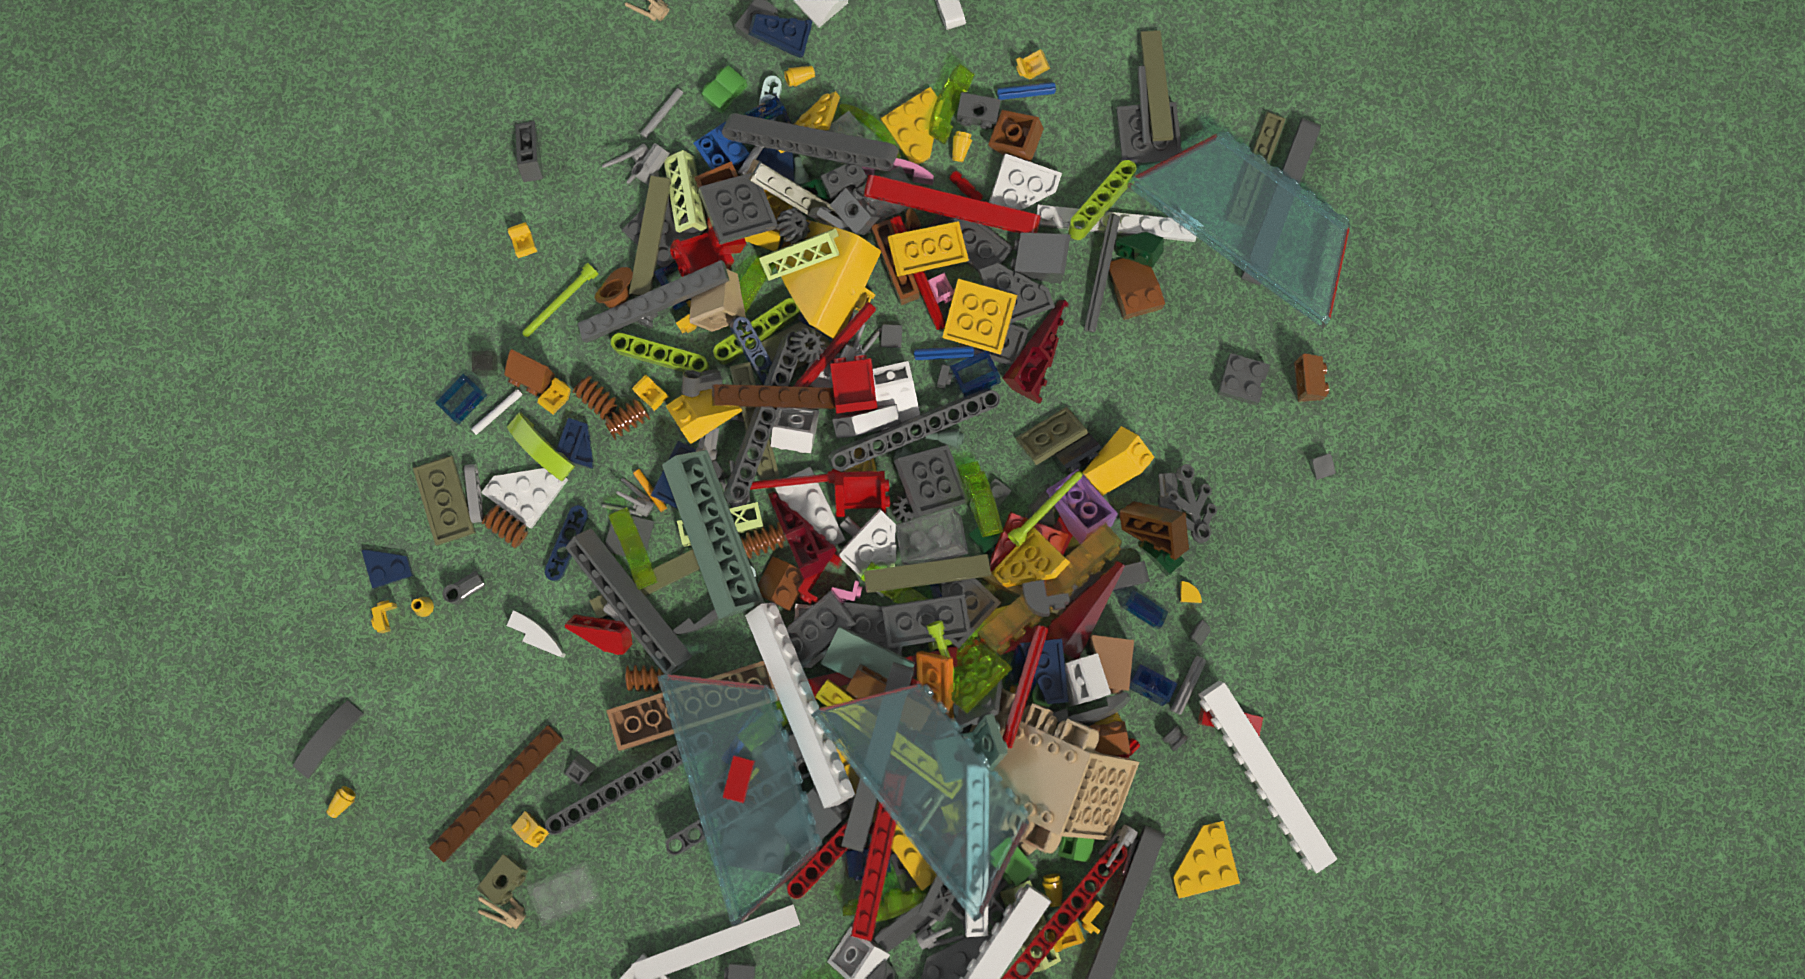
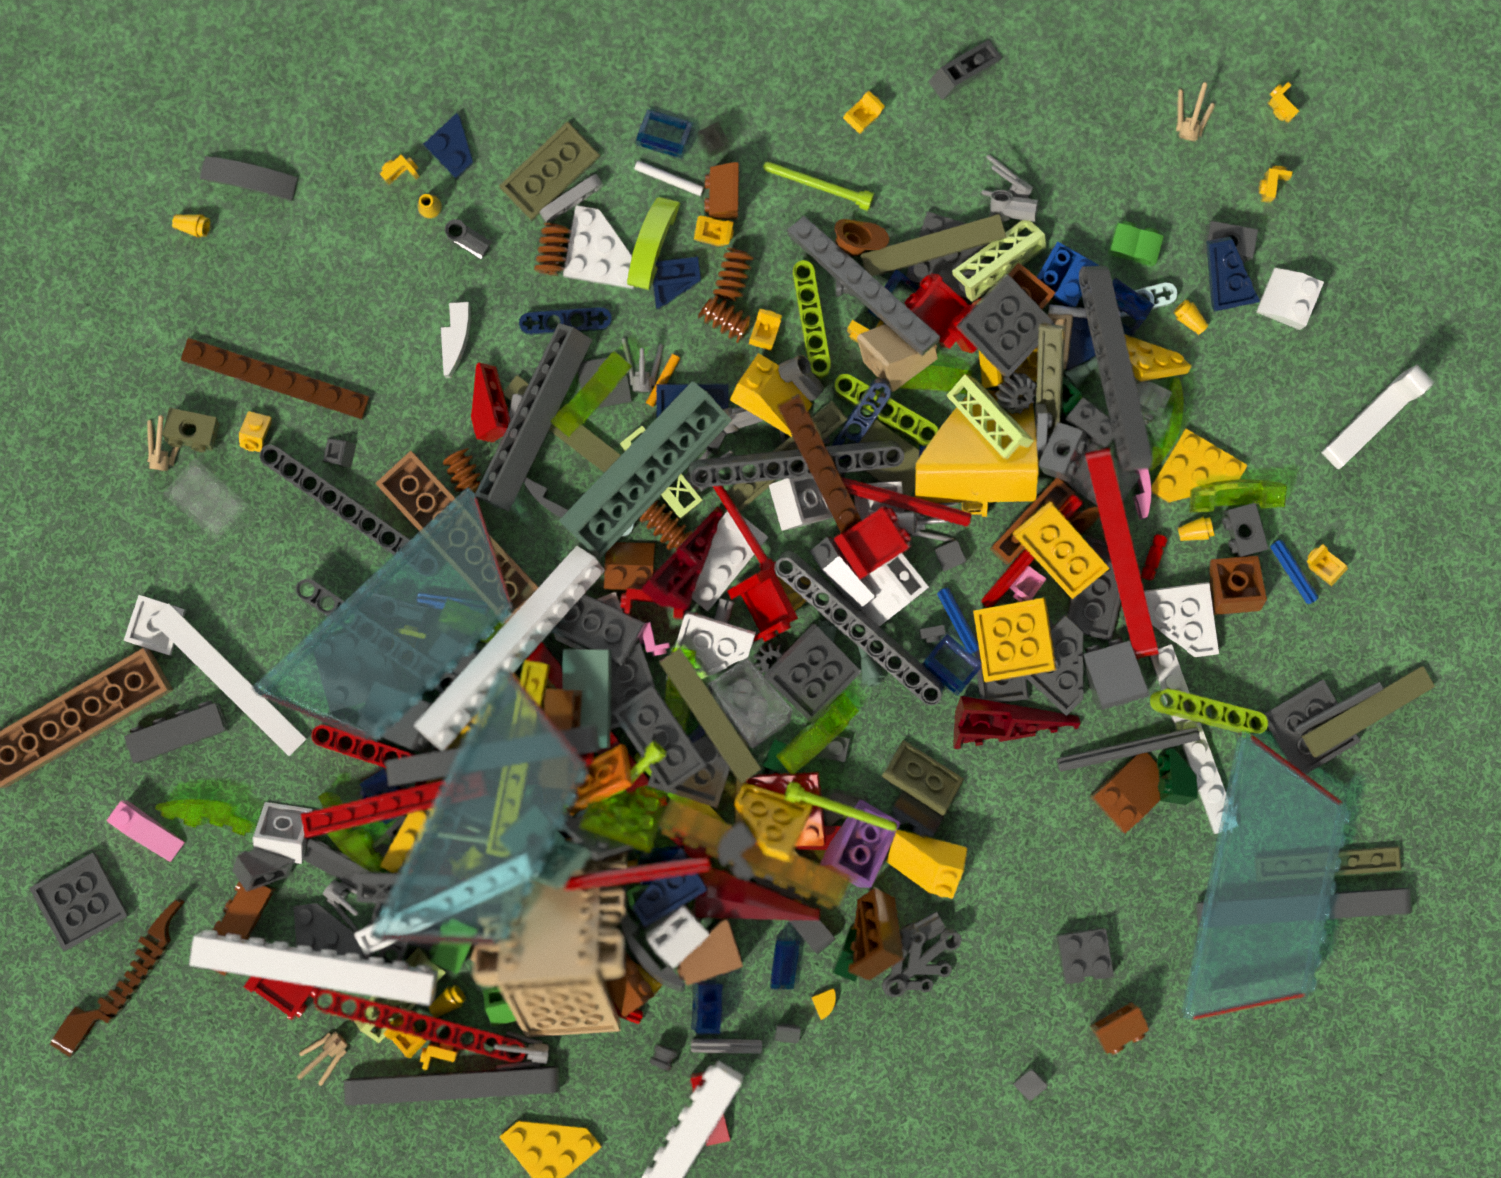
camera: 65 degrees right, 5 degrees up
(661, 113) = (1077, 189): light grey bar -> none
(738, 779) = (403, 622): red tile -> none
(807, 353) = (897, 463): dark grey gear -> none

